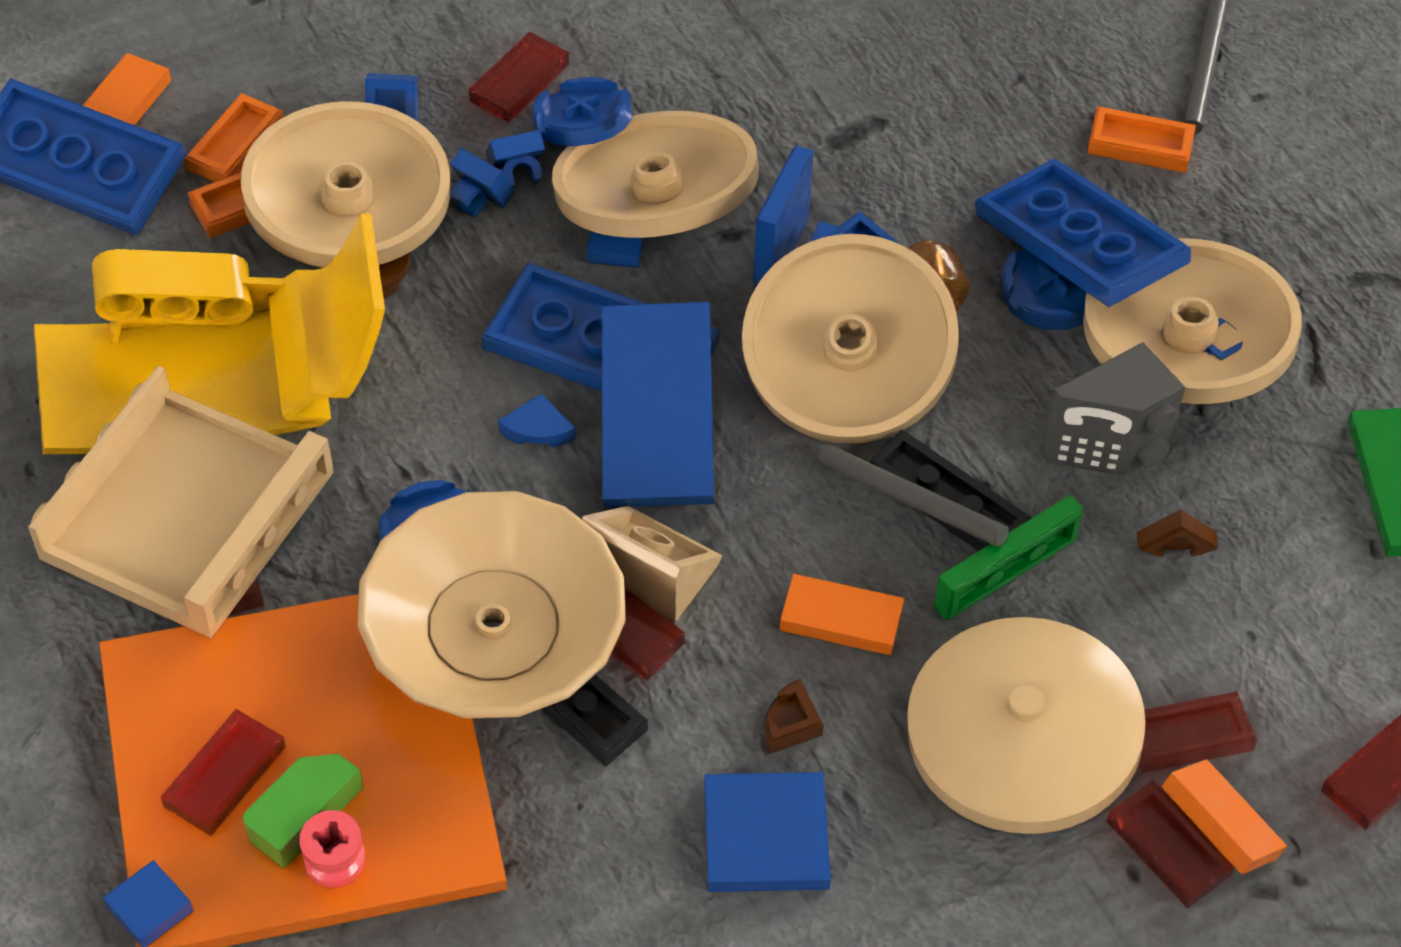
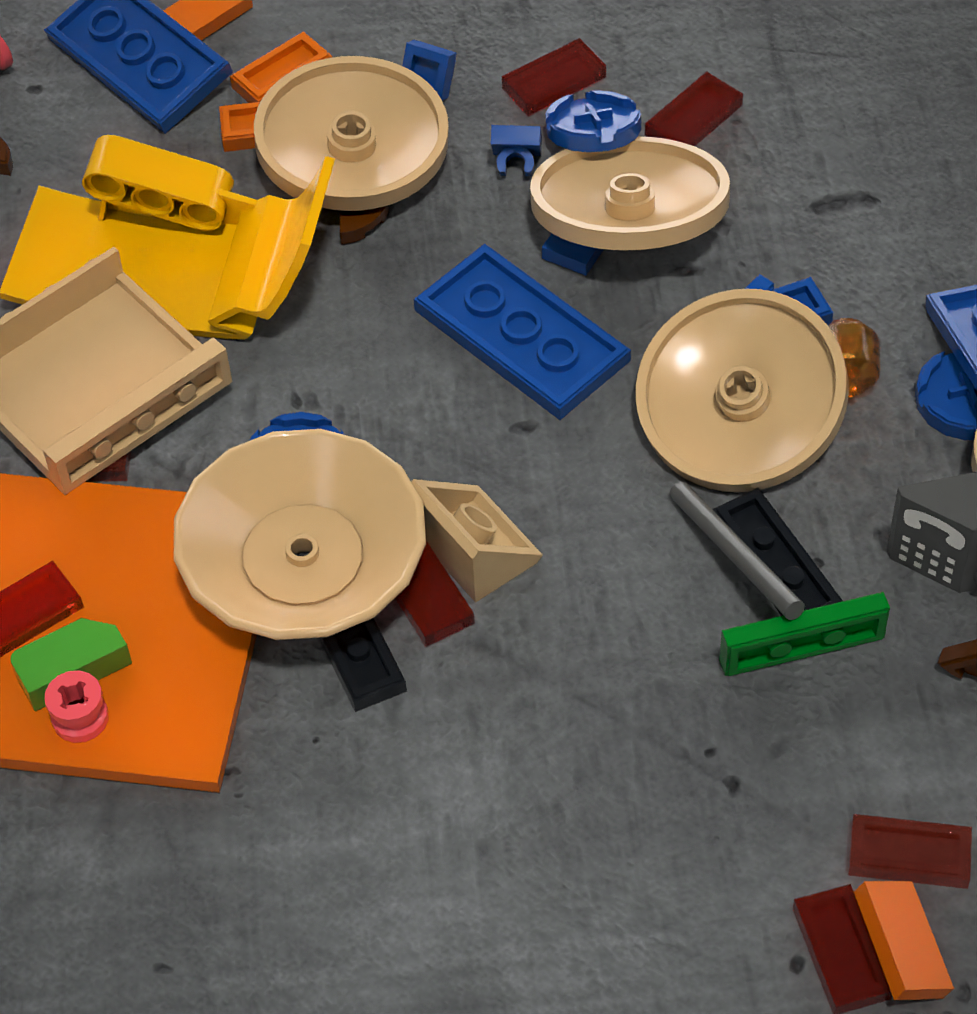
camera: 25 degrees right, 0 degrees up
(478, 183) = (469, 163): blue tile -> none
(537, 423) = (429, 389): blue tile -> none
(657, 405) = (539, 402): blue tile -> none
(674, 76) = (695, 111): none -> clear red tile
(766, 832) = (468, 815): blue tile -> none
(783, 212) = (731, 254): blue tile -> none
(791, 719) = (536, 721): reddish brown tile -> none
(841, 614) = (627, 640): orange tile -> none
(1026, 725) = (752, 794): tan dish -> none

